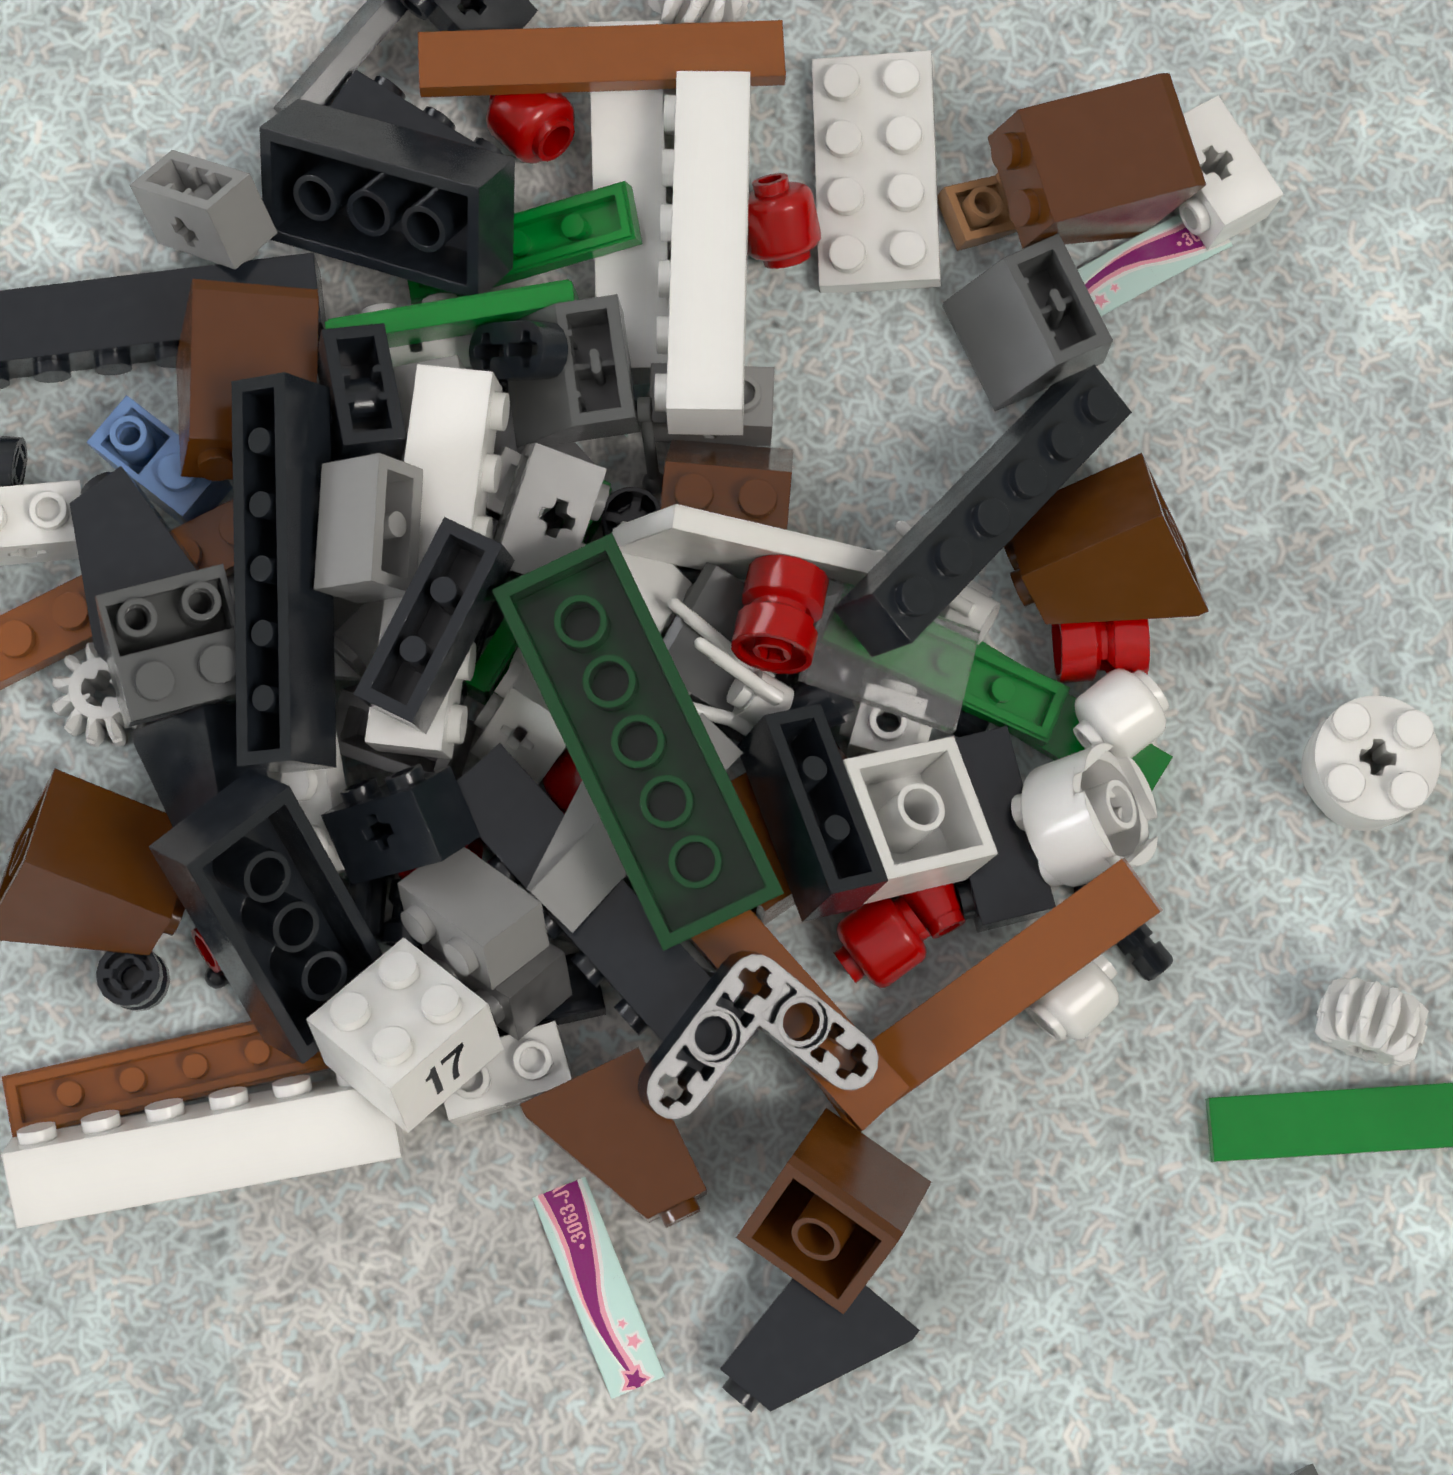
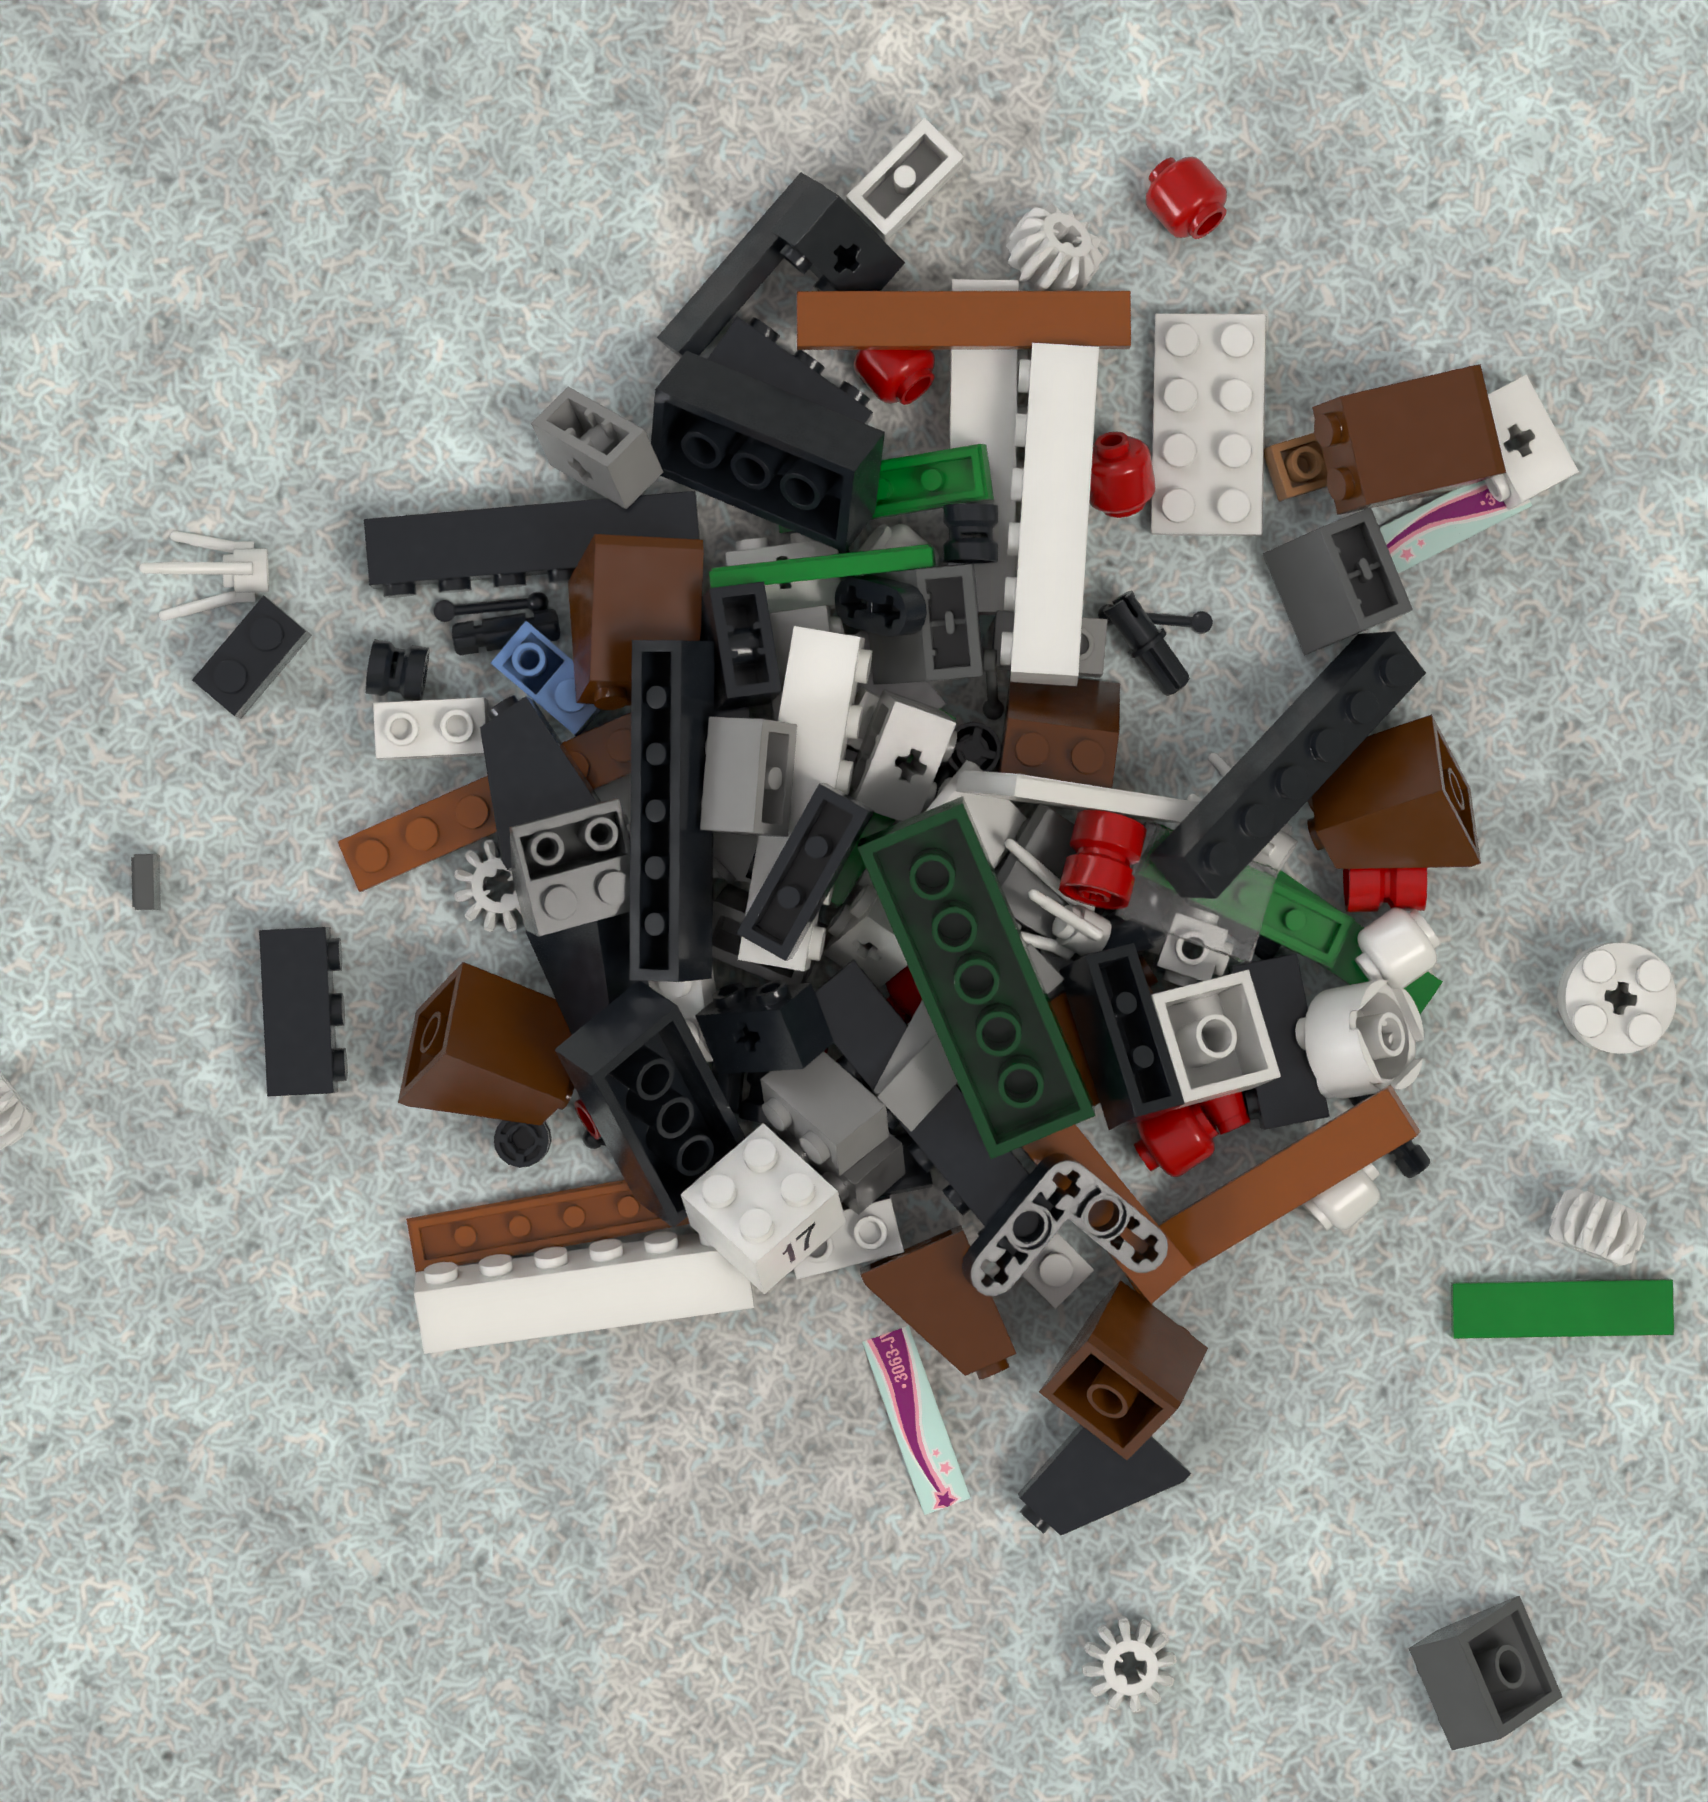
camera: 10 degrees right, 10 degrees up
(46, 404) = (446, 610): none -> black hinge
(70, 429) = (497, 631): none -> black axle
(618, 270) = (970, 520): none -> black wheel
(751, 1102) = (1057, 1271): none -> white plate
(821, 402) = (1147, 643): none -> black axle
(878, 381) = (1200, 622): none -> black hinge

